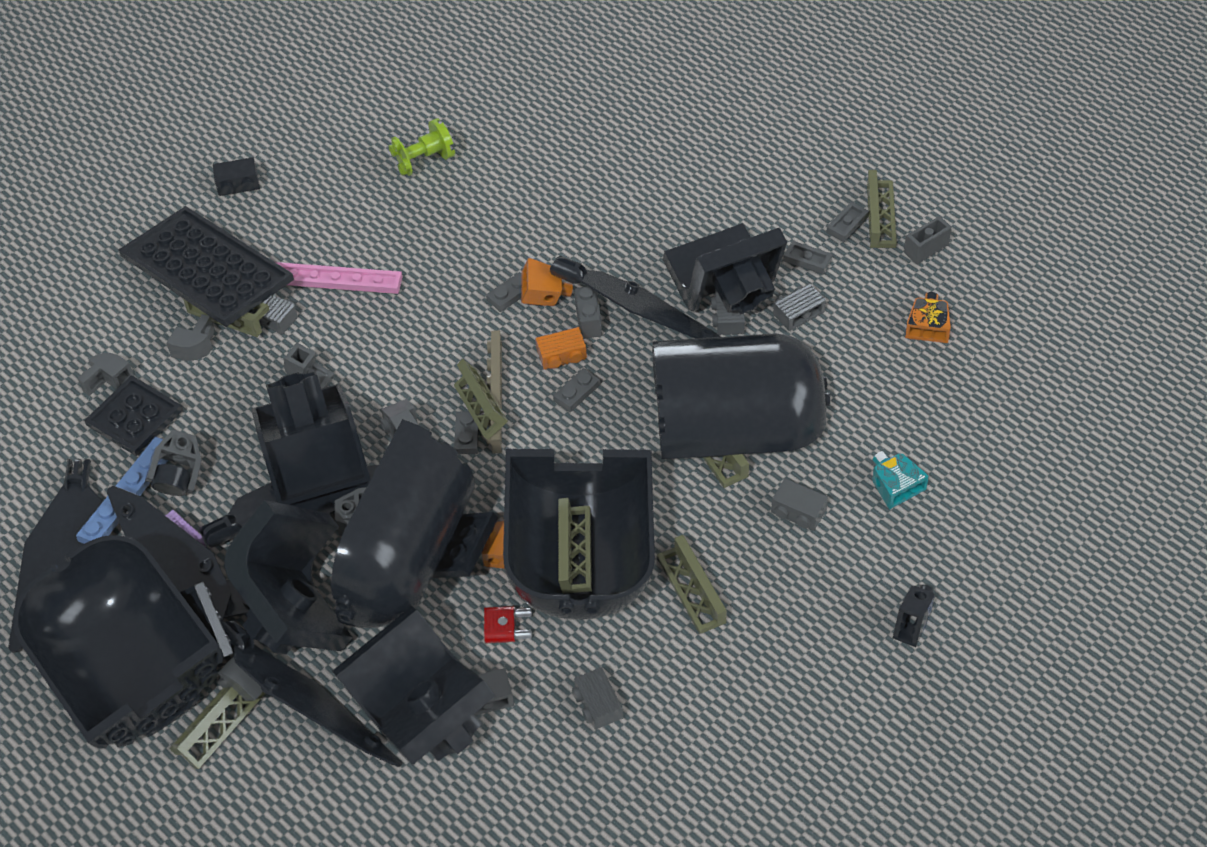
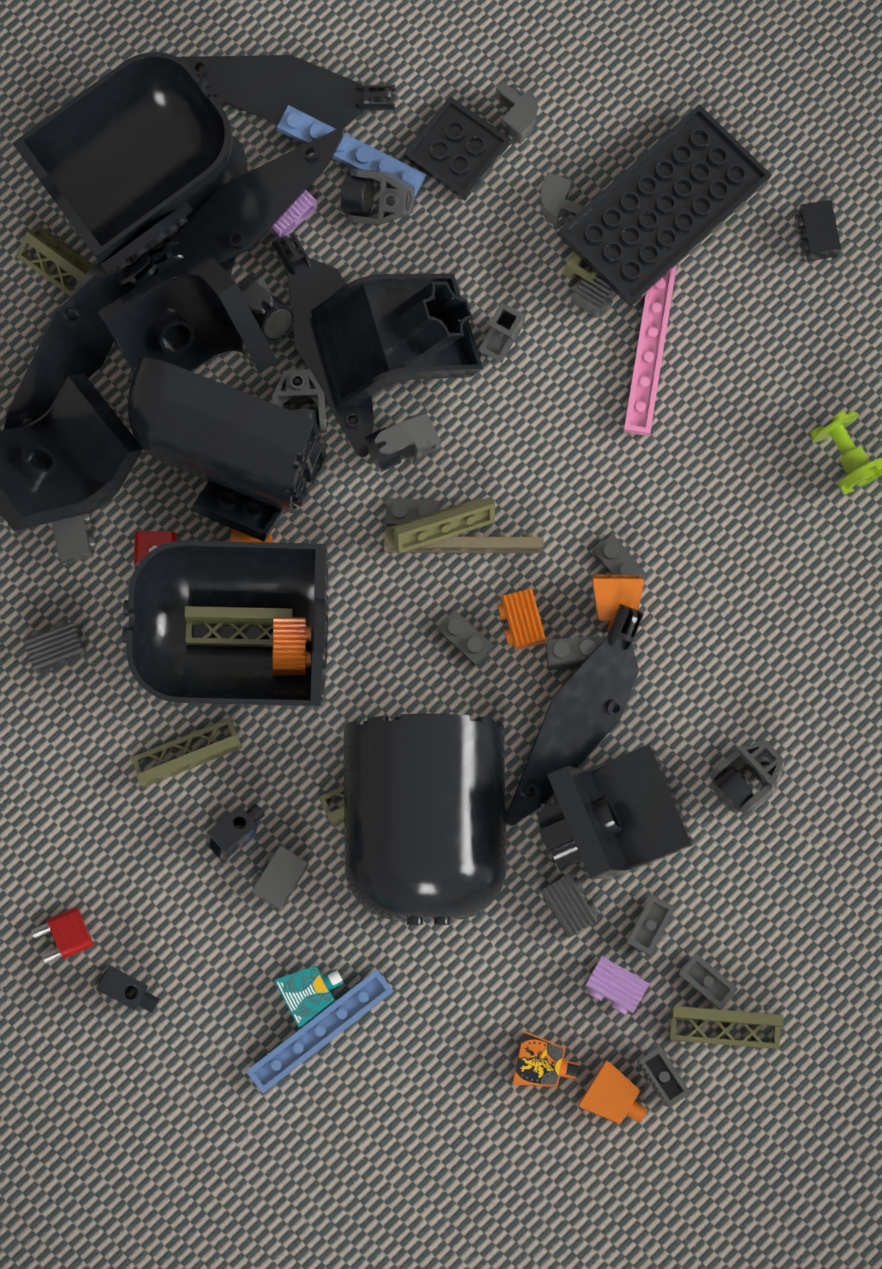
camera: 90 degrees right, 25 degrees up
(592, 499) = (290, 646): none -> orange brick
(693, 198) = (734, 790): none -> dark grey piece
(764, 538) = (226, 839): none -> black torso
(859, 274) = (616, 985): none -> lavender brick
(870, 668) = (68, 932): none -> red piece
(940, 478) = (319, 1031): none -> medium blue plate
(946, 274) = (612, 1096): none -> orange torso

